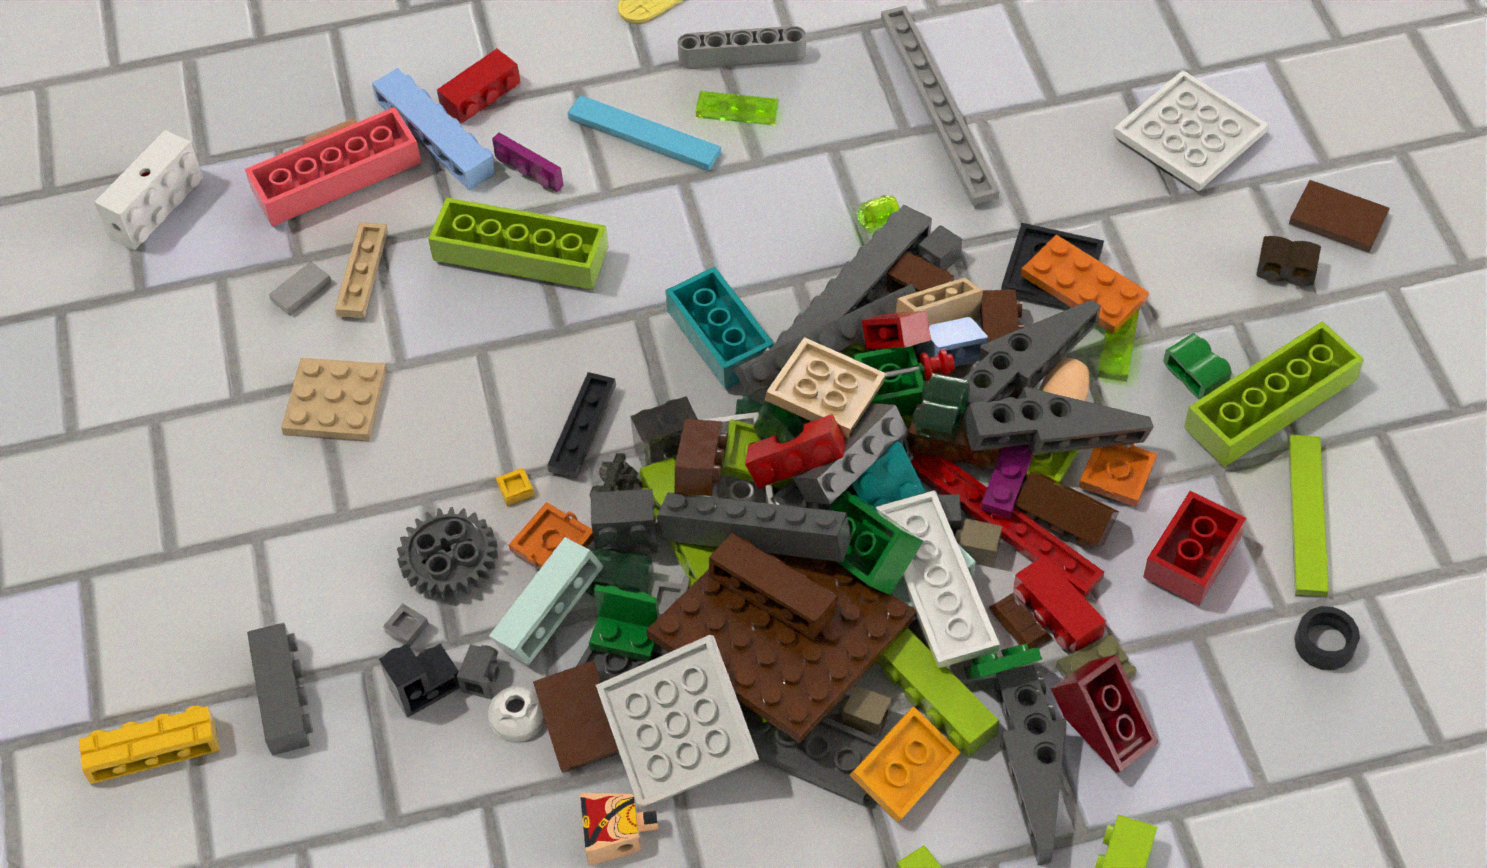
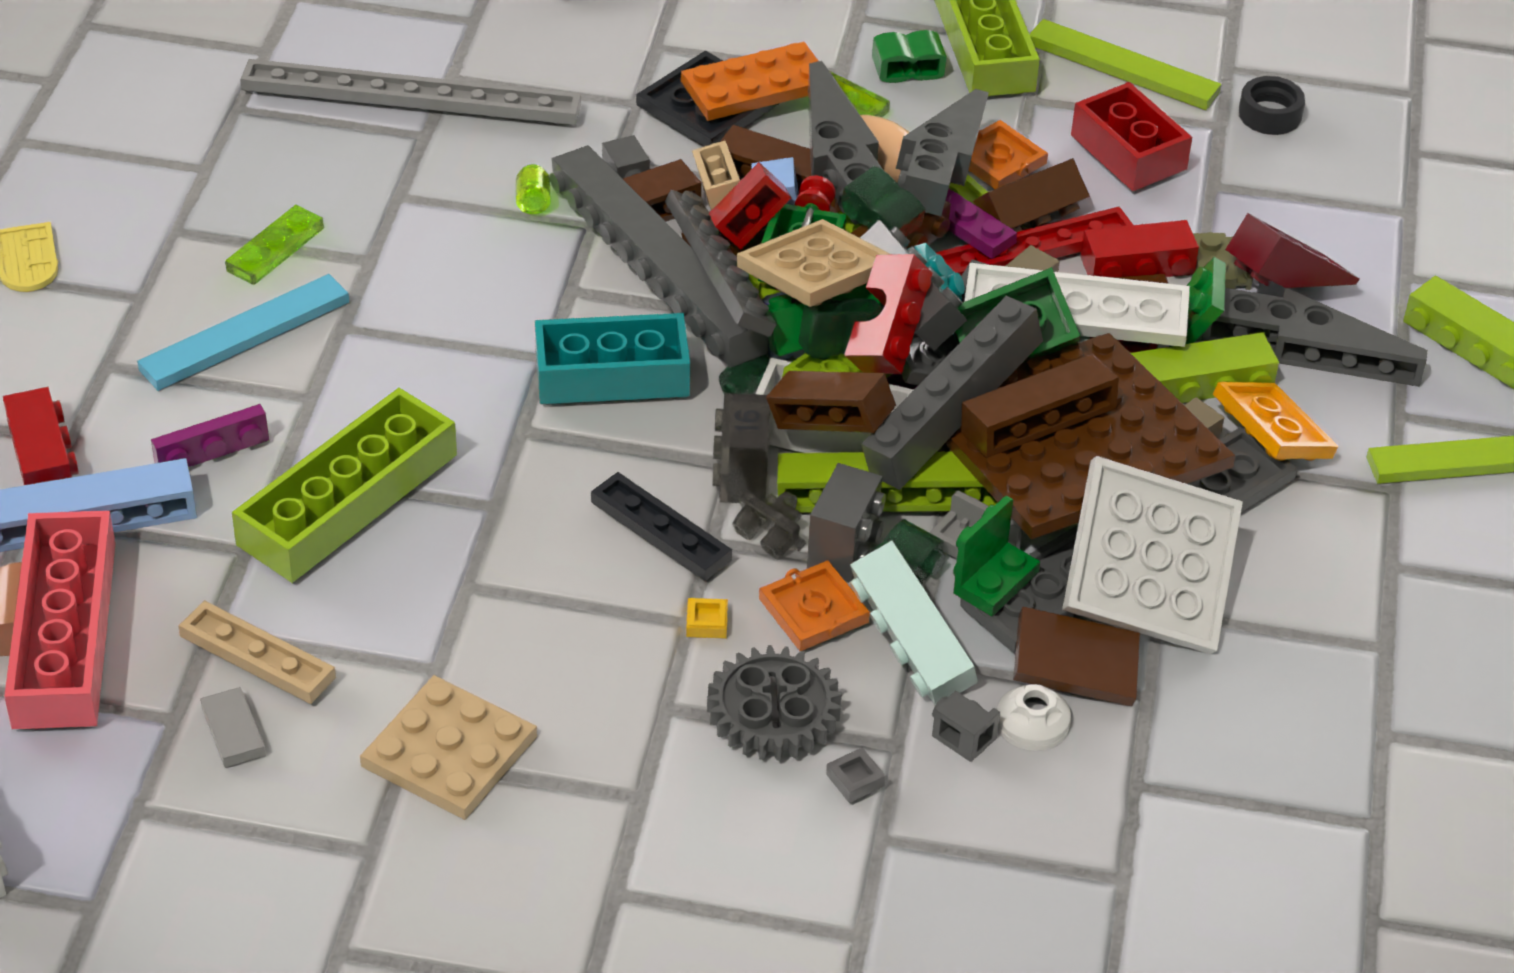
camera: 70 degrees left, 10 degrees down
(278, 688) = (880, 924): dark grey brick -> none
(419, 679) = (950, 778): black brick -> none
(613, 825) = (1232, 676): torso -> none
(742, 47) = (188, 203): light grey beam -> none

